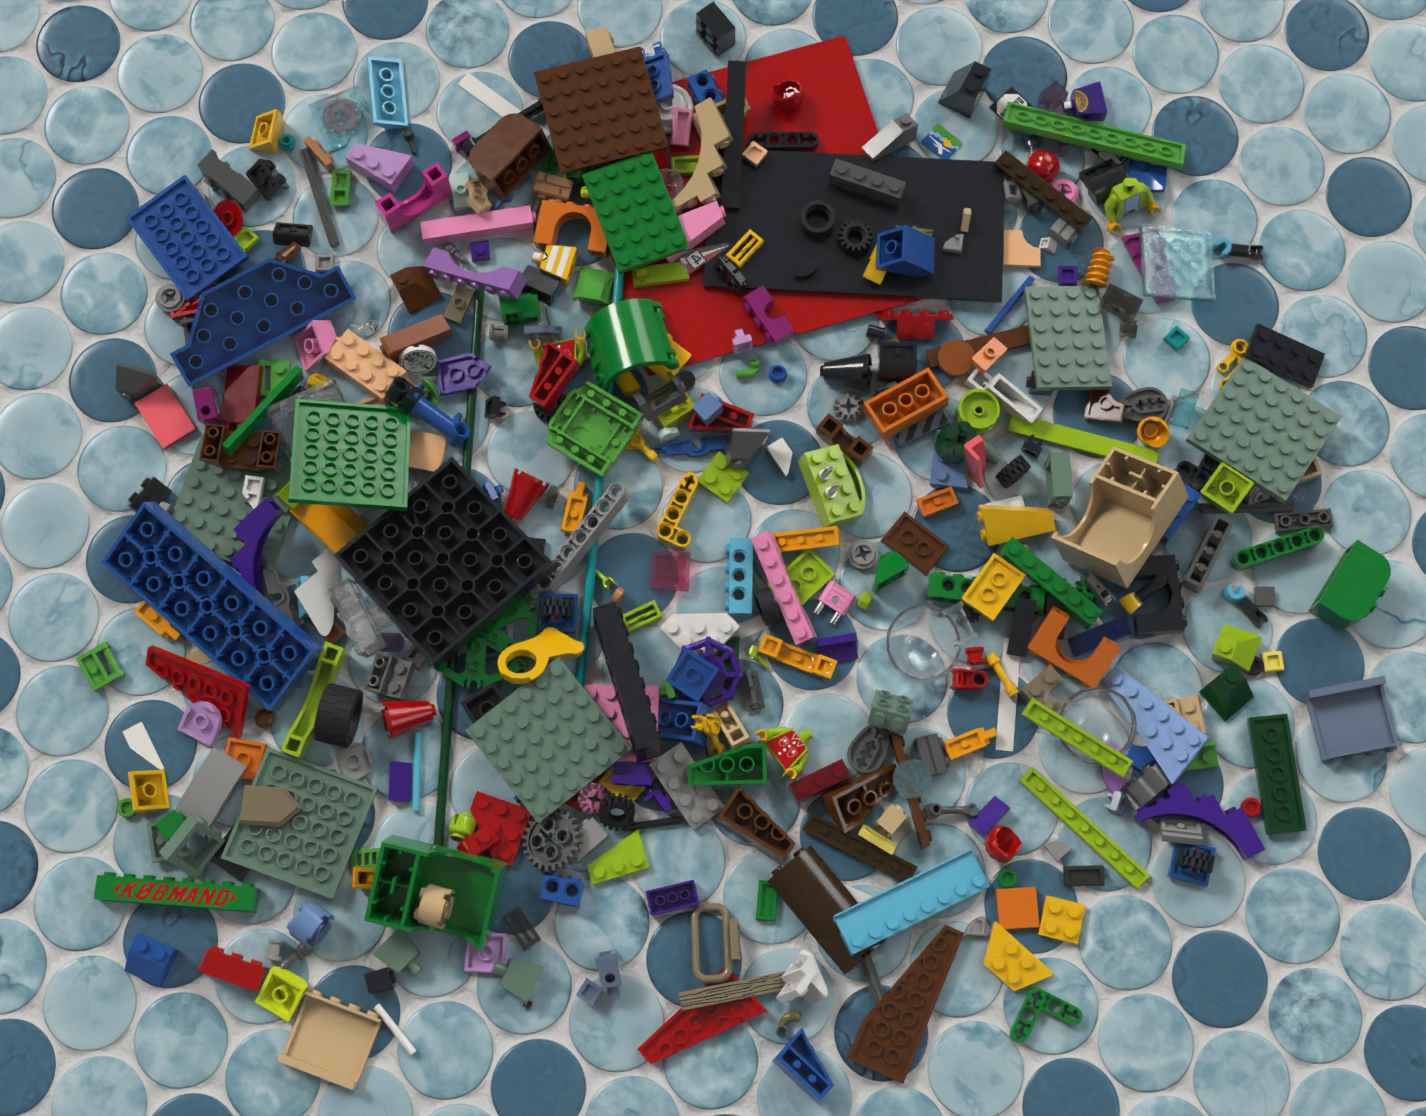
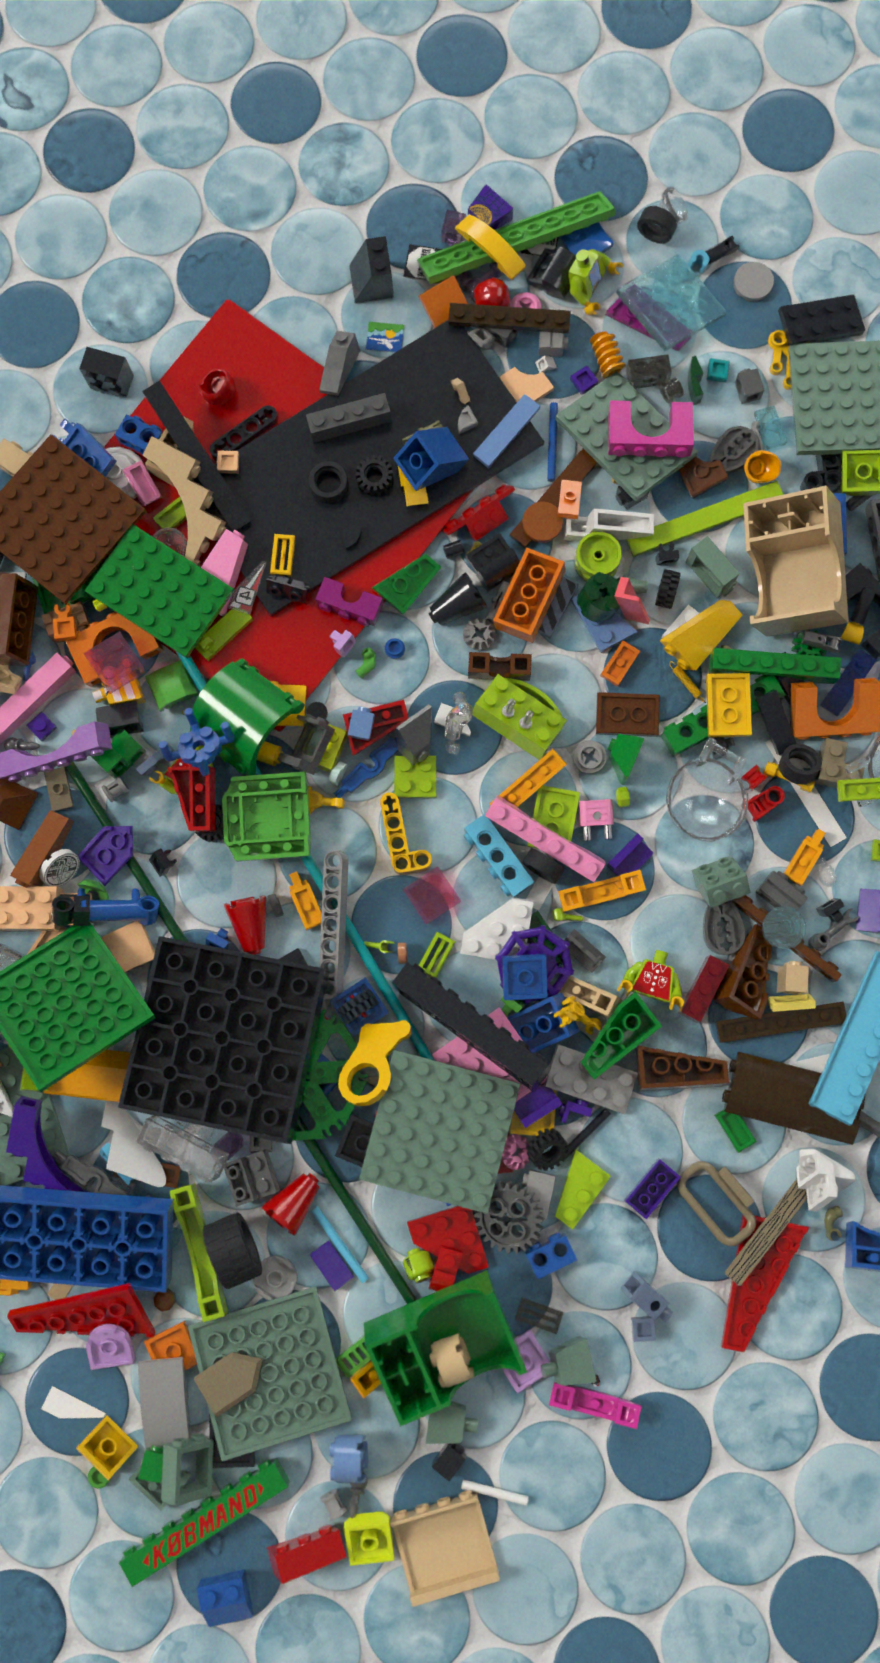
camera: 30 degrees left, 5 degrees up
(513, 1020) = (596, 1404): none -> dark pink slope
(549, 189) = (64, 626): none -> orange plate
(565, 240) = (114, 662): none -> clear pink brick
(580, 334) = (195, 738): none -> blue plate
(782, 456) = (456, 720): none -> clear arm
(821, 333) = (407, 583): none -> green wing
(959, 793) = (831, 909): none -> black tile
(977, 542) = (687, 682): none -> yellow piece
(978, 272) = (506, 431): none -> medium blue tile
(1000, 140) = (438, 299): none -> orange tile
(1010, 679) = (804, 753): none -> black tyre
(1069, 129) = (492, 244): none -> yellow slope
(1097, 366) = (625, 440): none -> dark pink arch
(1153, 331) = (694, 378): none -> dark green slope
(1190, 366) = (749, 385): none -> dark grey brick
(1208, 198) = (661, 217): none -> black tyre
(1233, 193) = (674, 203): none -> clear piece
(1254, 291) = (753, 281): none -> light grey tile

